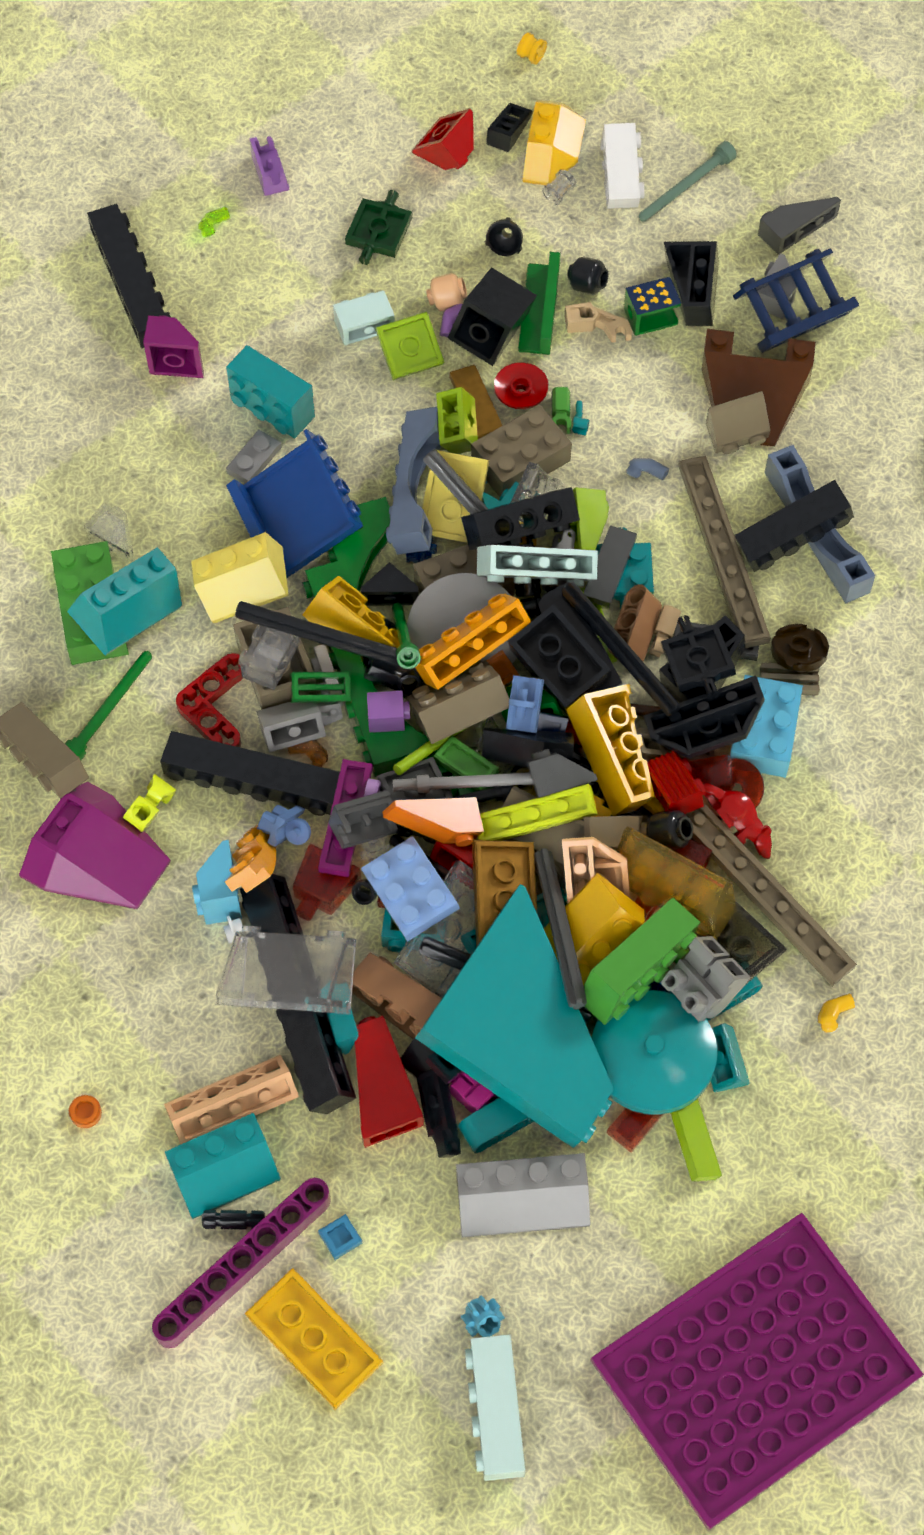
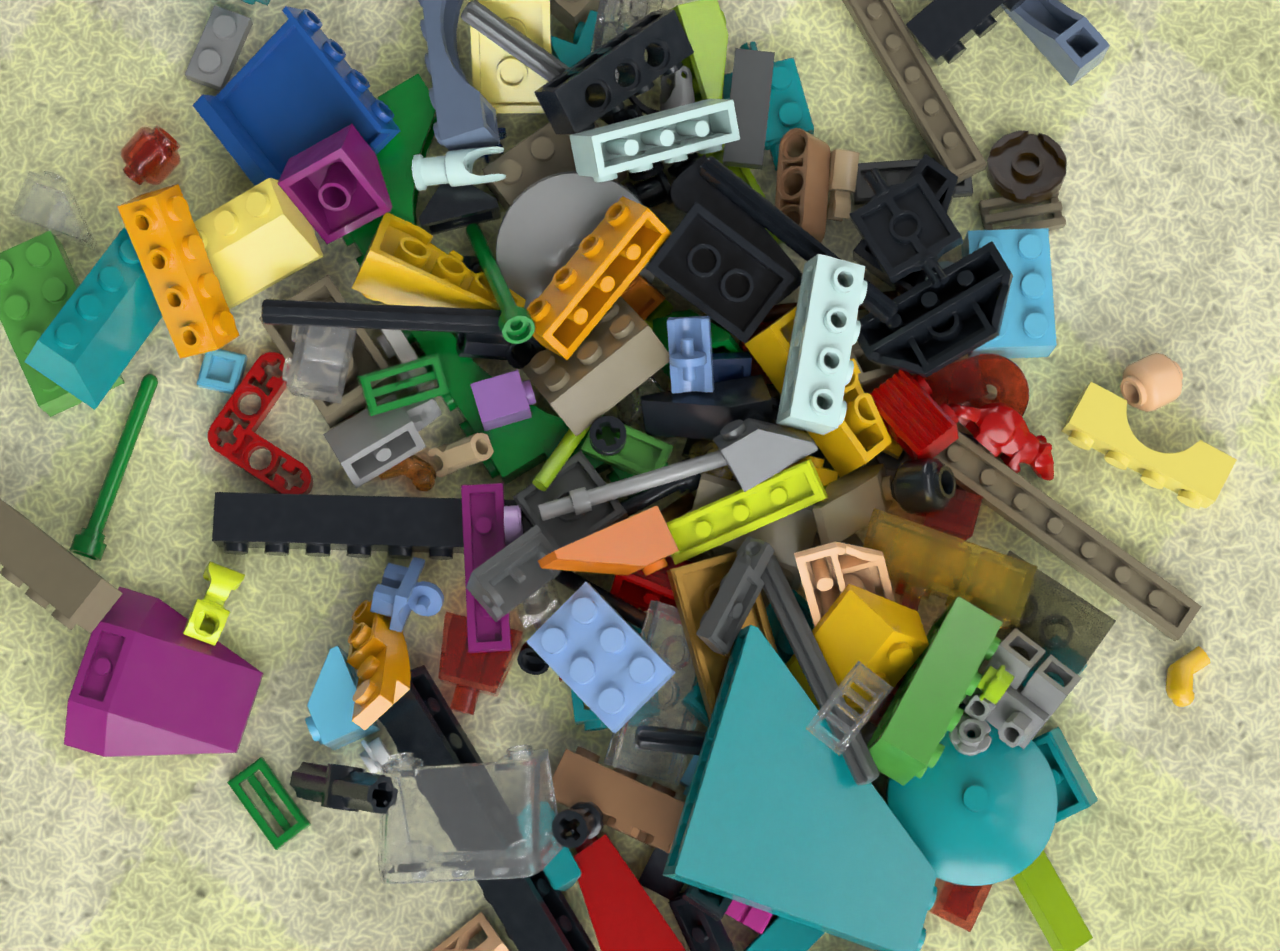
camera: 15 degrees left, 15 degrees up
(158, 970) = (289, 831): none -> green tile
(187, 582) = (179, 271): none -> light orange brick
(188, 512) = (150, 155): none -> clear red head
(197, 659) = (222, 371): none -> medium azure tile
(206, 938) = (344, 787): none -> black piece
(310, 550) = (337, 184): none -> magenta slope
(349, 744) = (462, 453): none -> tan bar
(364, 997) = (567, 820): none -> black bush
(394, 558) = (452, 168): none -> light aqua piece
(454, 758) = (616, 425): none -> black bush
(514, 867) = (735, 596): none -> dark grey hinge
(586, 933) = (869, 683): none -> clear slope
(616, 713) = (822, 345): none -> light aqua brick
(658, 1007) = (968, 745): none -> light grey plate
(685, 963) = (994, 683): none -> lime plate
(856, 806) = (1151, 382): none -> light nougat head
(870, 872) = (1102, 424): none -> light yellow arch

